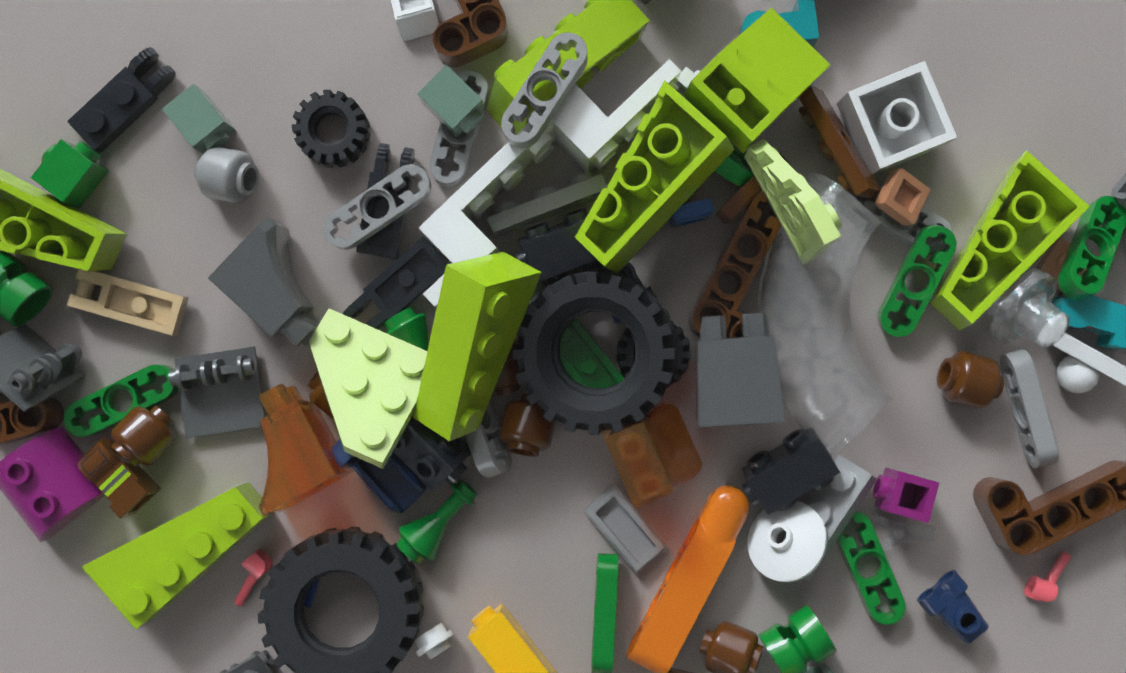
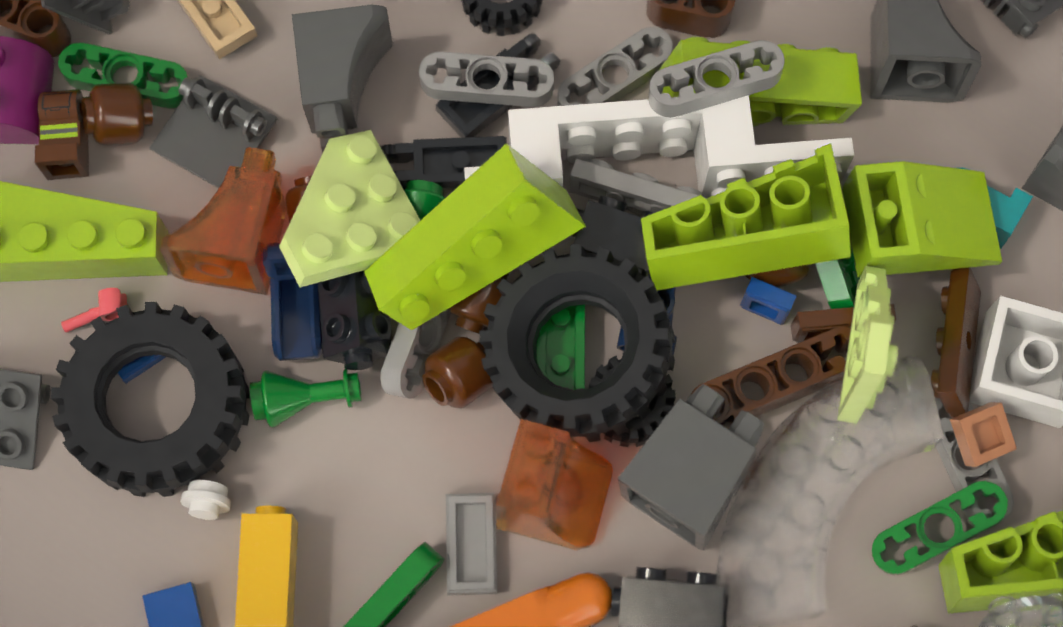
camera: 35 degrees right, 15 degrees down
(452, 102) = (627, 40): sand green brick -> none

